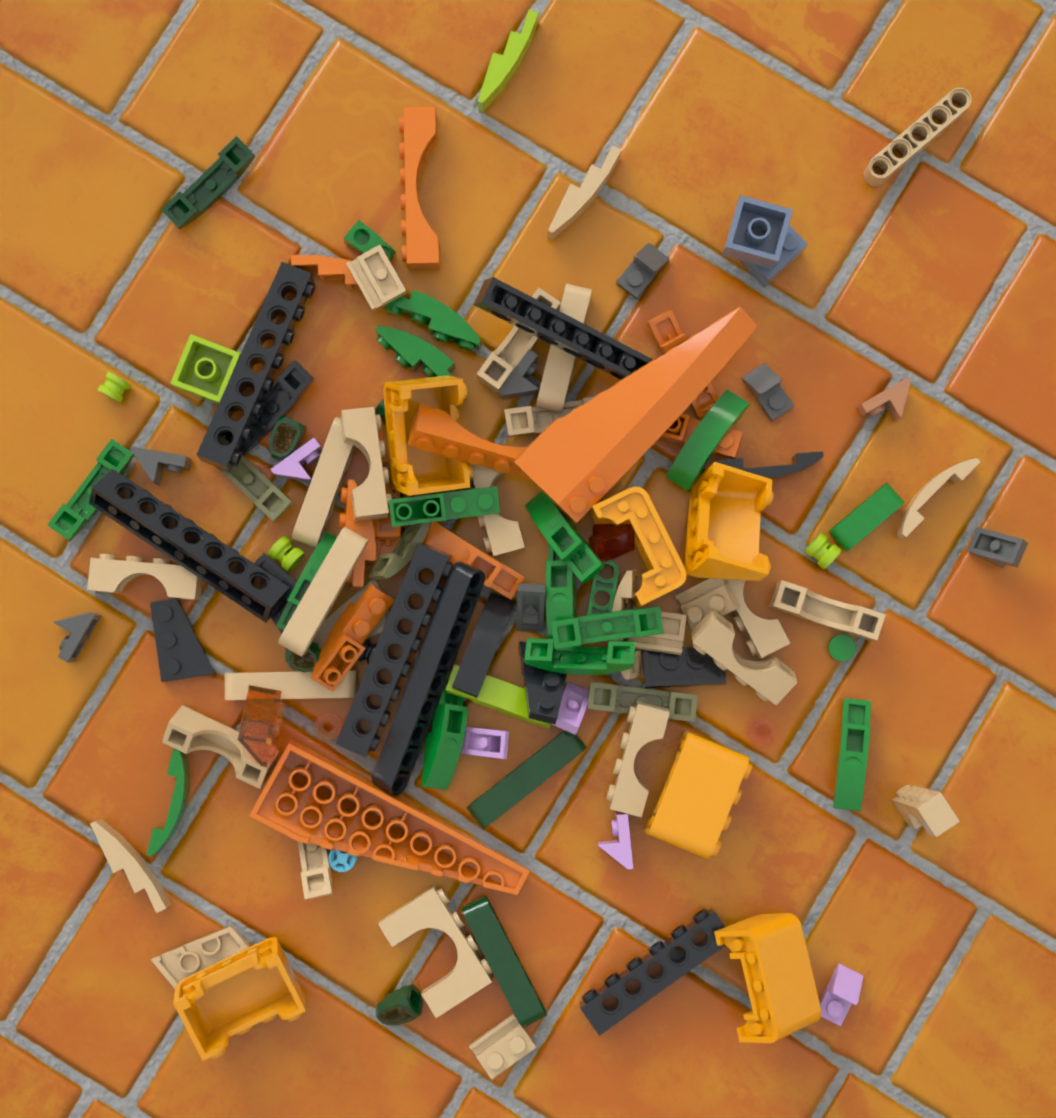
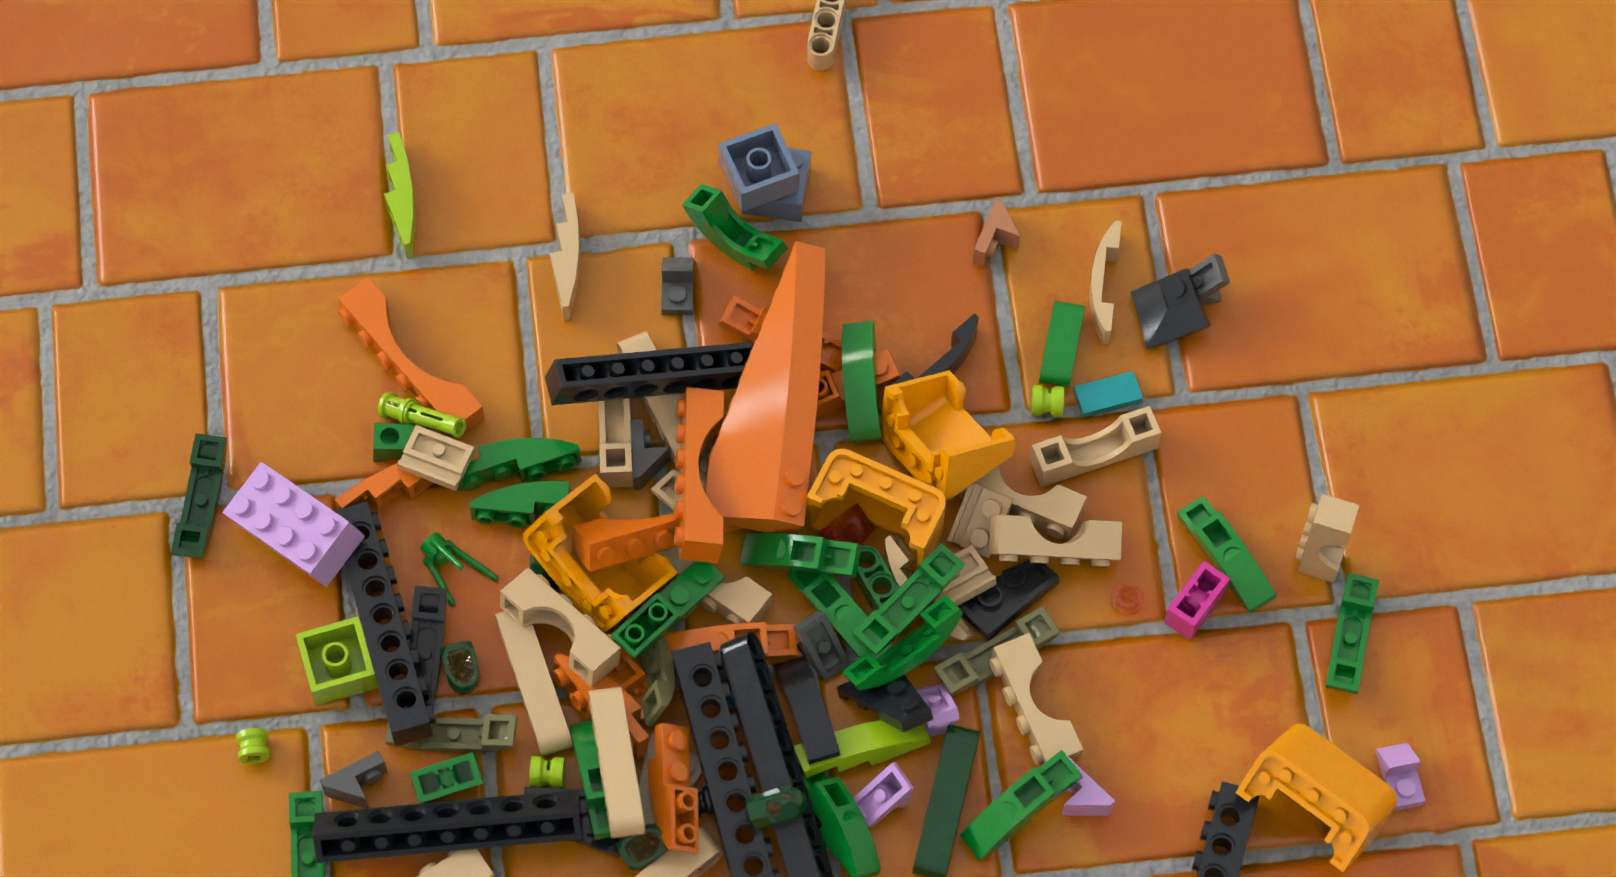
camera: 40 degrees left, 20 degrees down
(217, 508) = (447, 777): none -> green brick
(248, 253) = (293, 524): none -> lavender brick
(292, 466) = (491, 689): lavender slope -> none
(334, 344) = (441, 552): none -> green plant
(388, 220) = (411, 412): none -> lime pin
(403, 703) = (776, 807): none -> dark green rock
(503, 472) = (700, 523): none -> orange arch
(570, 822) = (1019, 804): none -> green slope
(698, 796) = (1119, 691): light orange windscreen -> none
(707, 261) = (729, 232): none -> green arch
(767, 391) = (881, 305): dark grey slope -> none
(804, 773) = (1197, 600): none -> dark pink brick
(841, 647) = (1137, 473): green tile -> none
(868, 576) = (1108, 394): none -> teal tile
(887, 875) = (1351, 633): none -> green slope
(961, 550) = (1169, 309): none -> black plate

